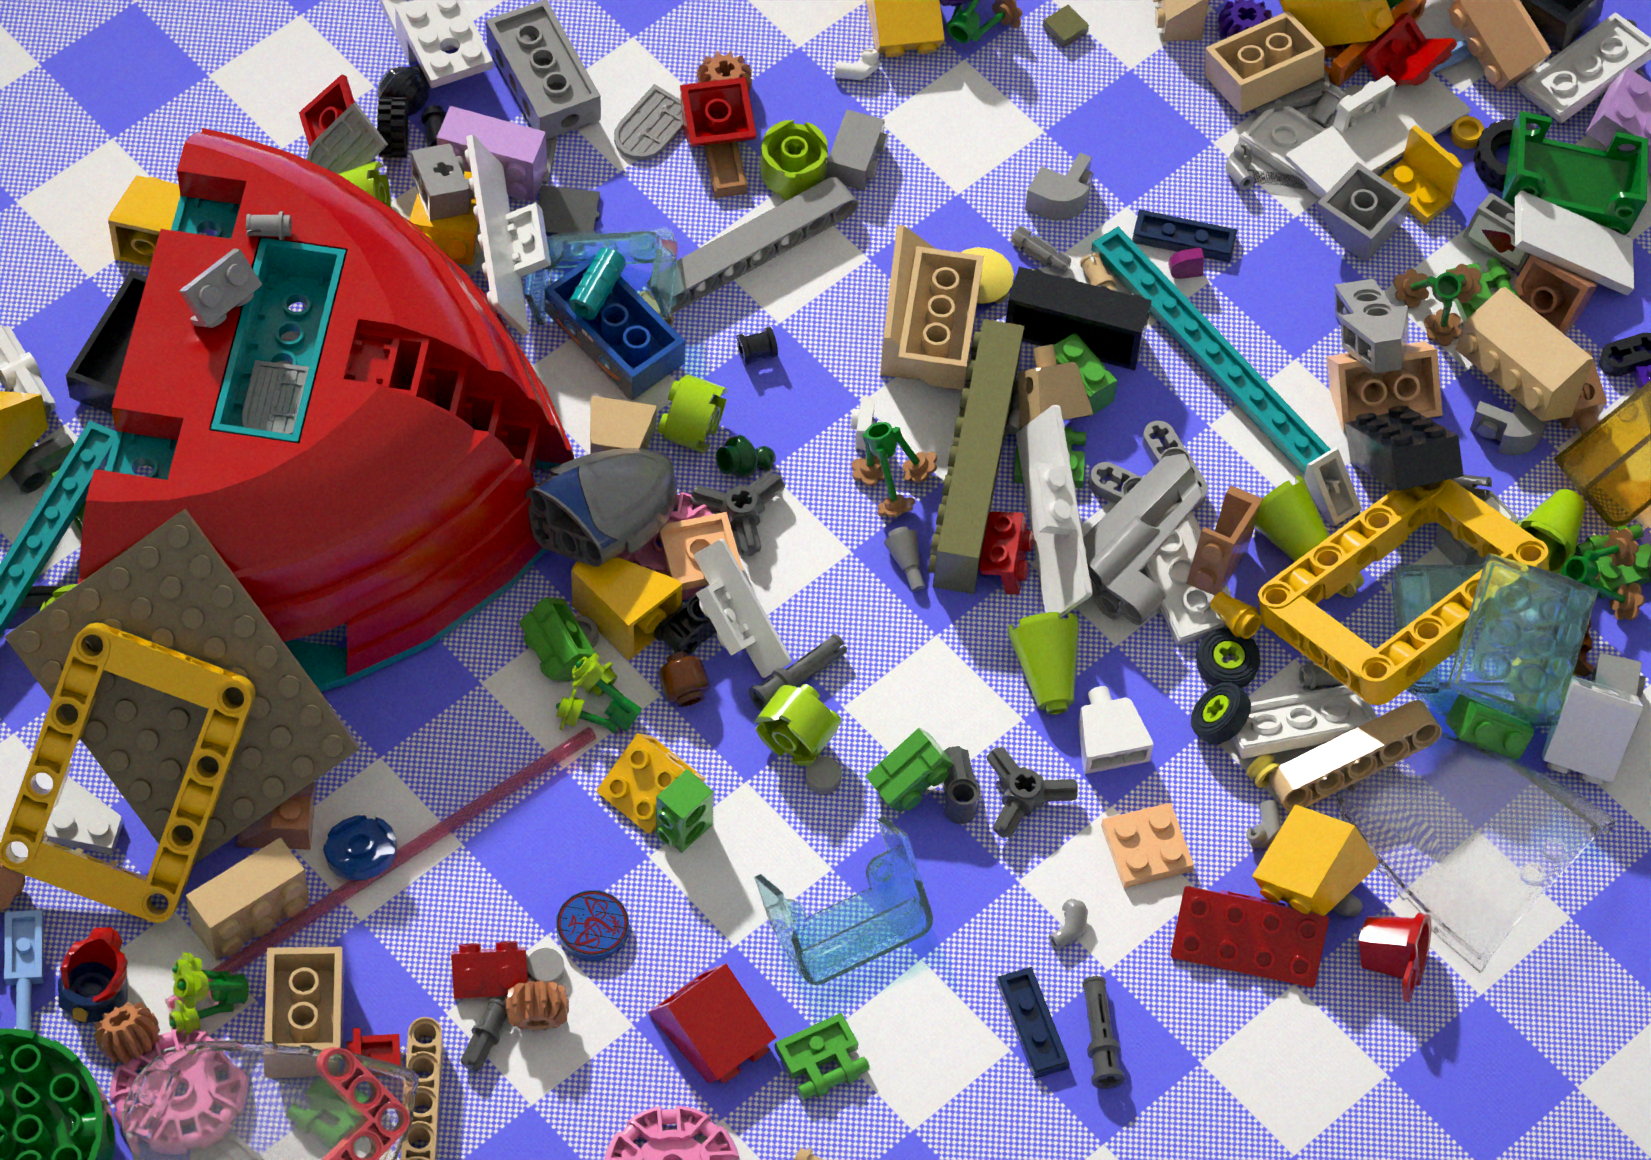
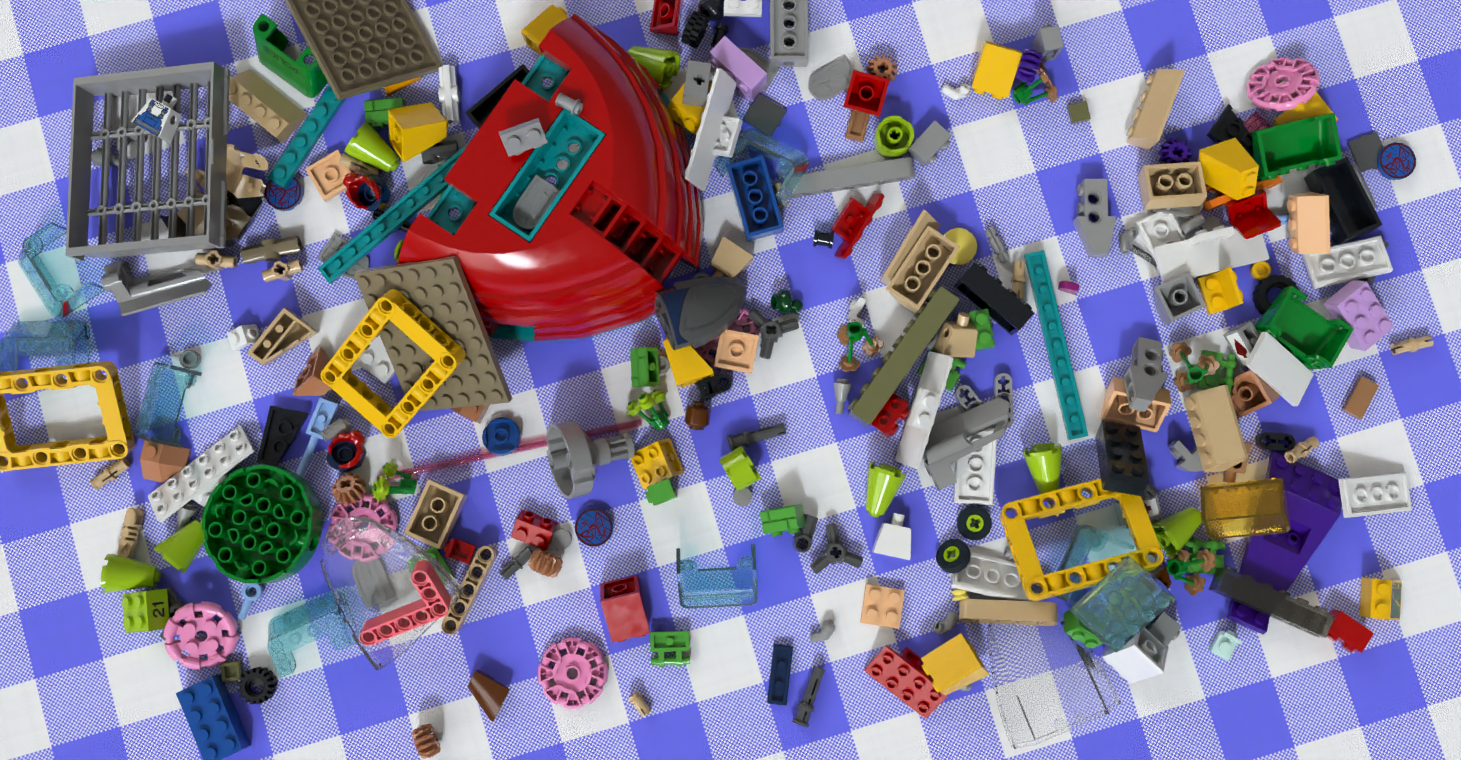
camera: 30 degrees right, 25 degrees up
(56, 948) = (335, 429): none -> light grey cone
(248, 899) = (432, 446): tan brick -> none
(347, 142) = (664, 32): light grey window -> none
(513, 803) = (576, 456): none -> light grey piece
(597, 283) = (752, 176): teal axle -> none
(693, 412) = (770, 268): lime brick -> none
(737, 611) = (736, 394): white bracket -> none
(792, 303) = (853, 221): none -> red bracket
(1058, 195) = (1022, 218): light grey brick -> none
(1170, 158) = (1094, 235): none -> light grey brick
(1183, 234) = (1077, 268): dark blue tile -> none
(1223, 549) = (1013, 456): medium nougat panel -> none
(1238, 616) = (989, 508): yellow cone -> none
(1331, 487) = (1075, 453): white slope -> none
(1397, 948) = (975, 720): red container -> none

